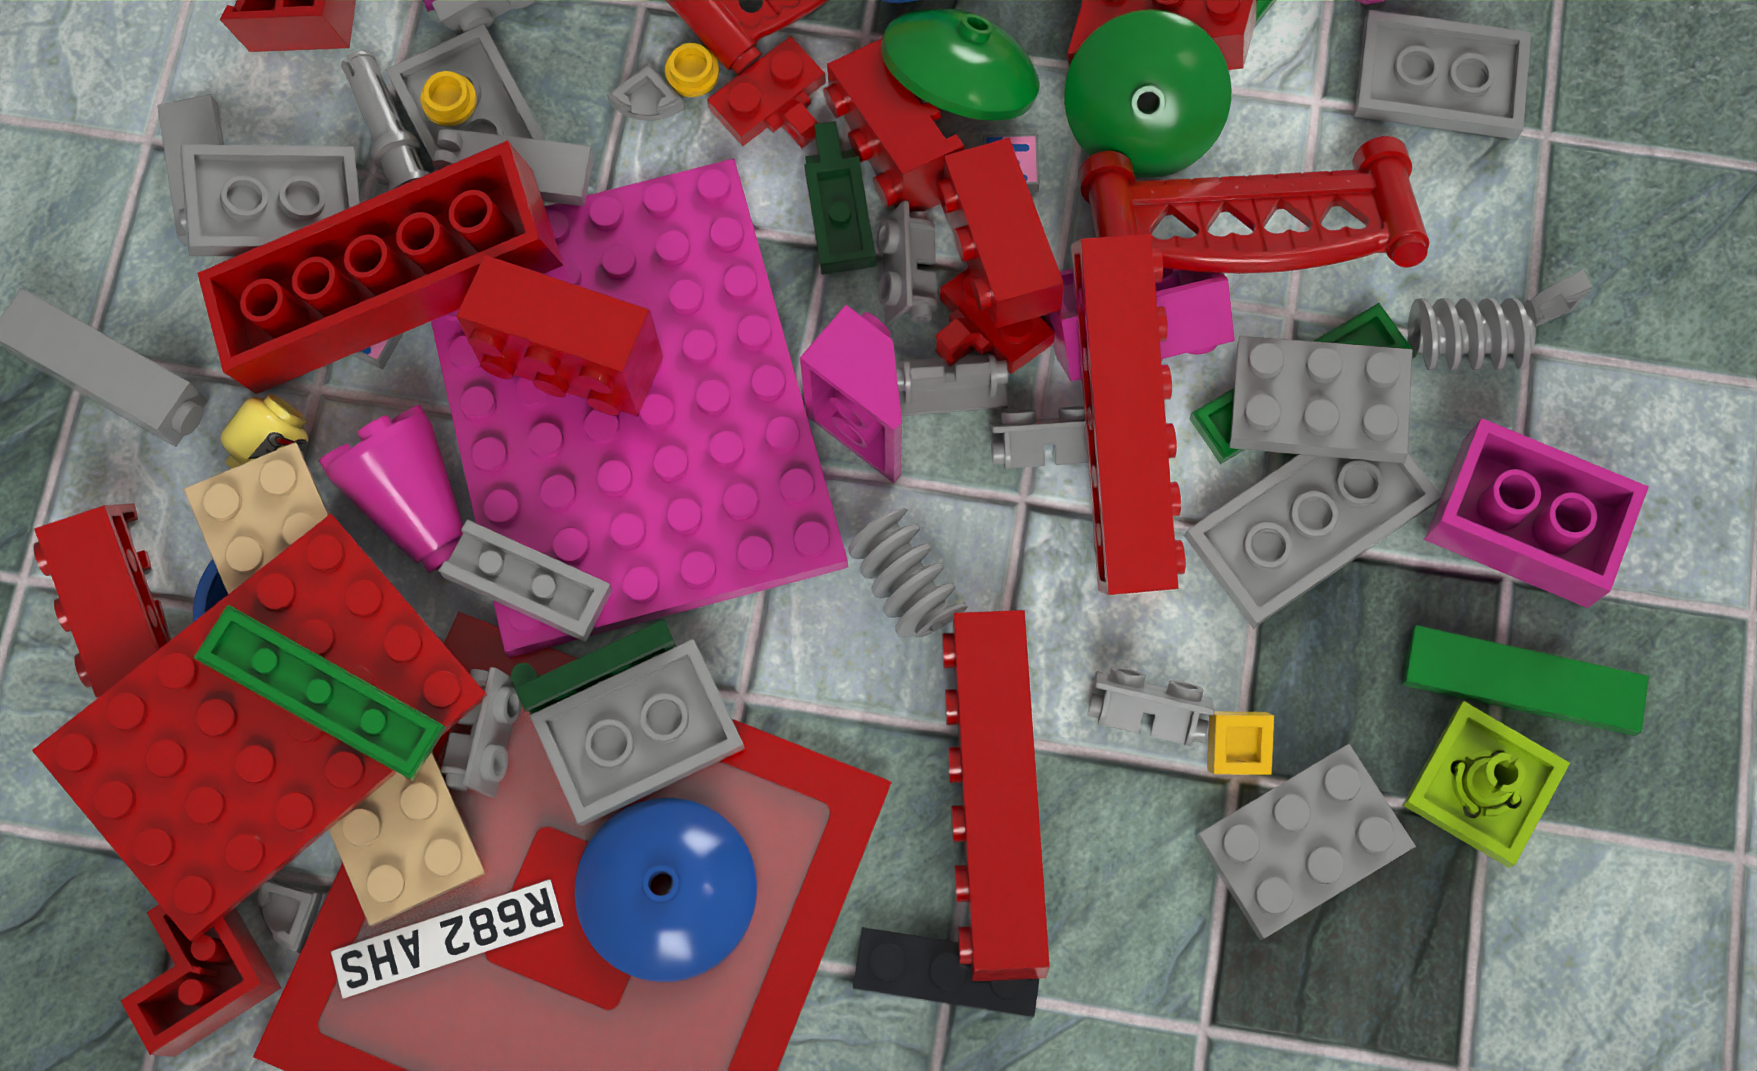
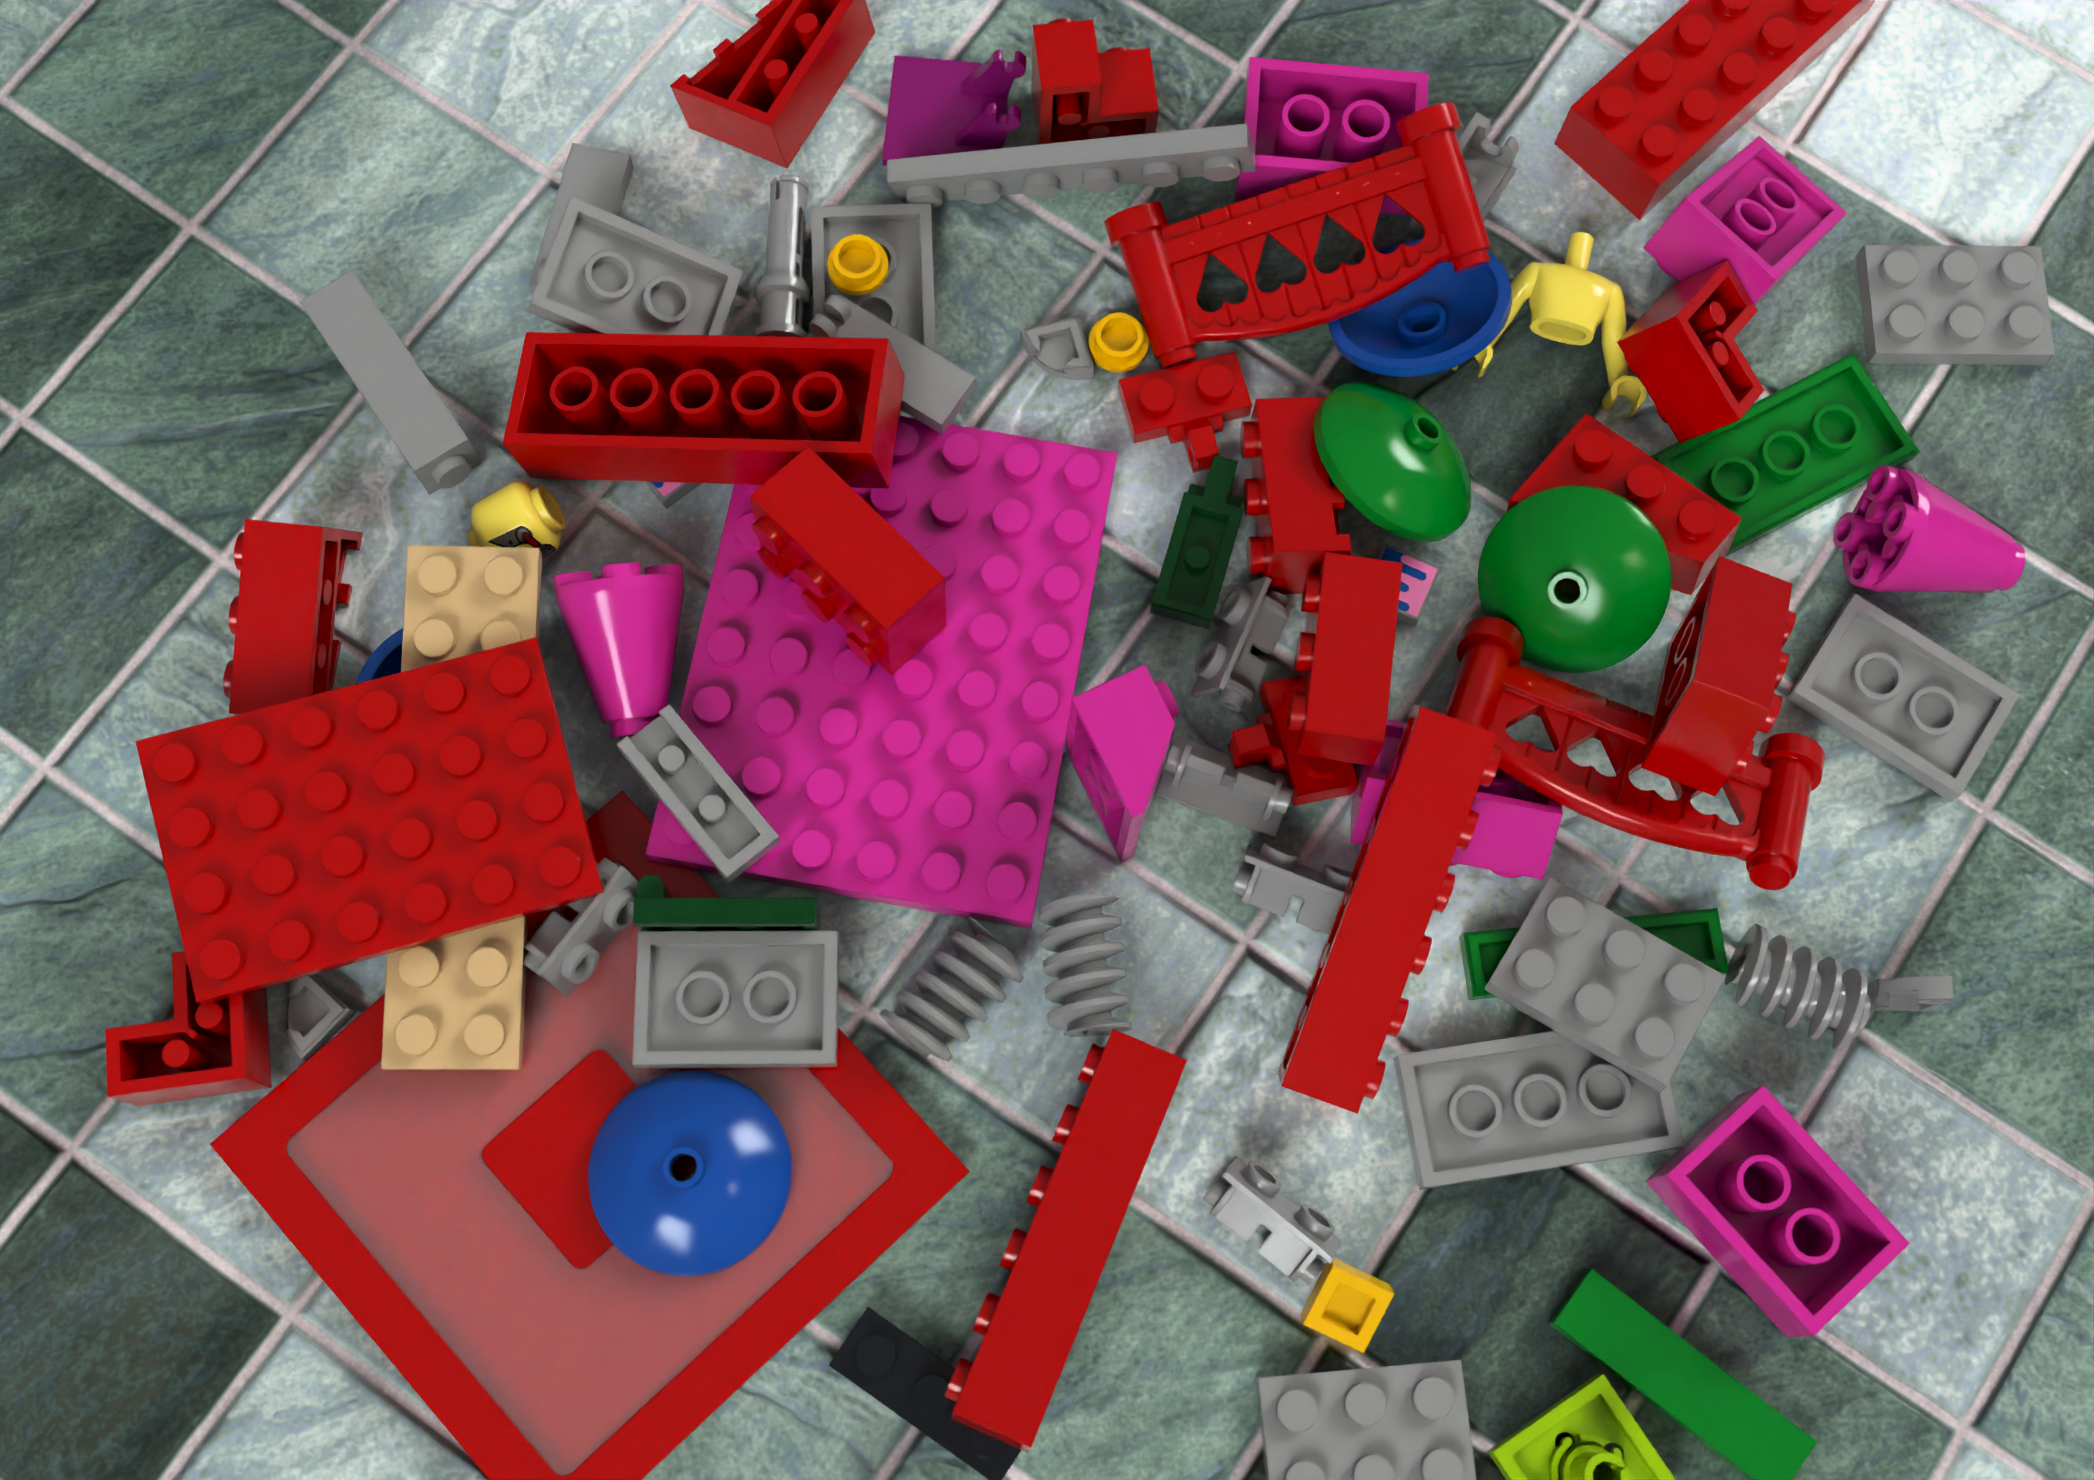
camera: 20 degrees right, 0 degrees up
(320, 692) = (437, 816): green tile -> none
(446, 938) = (453, 1117): white sticker -> none
(809, 645) = (953, 993): none -> light grey piece
(1299, 117) = (1720, 677): none -> red brick

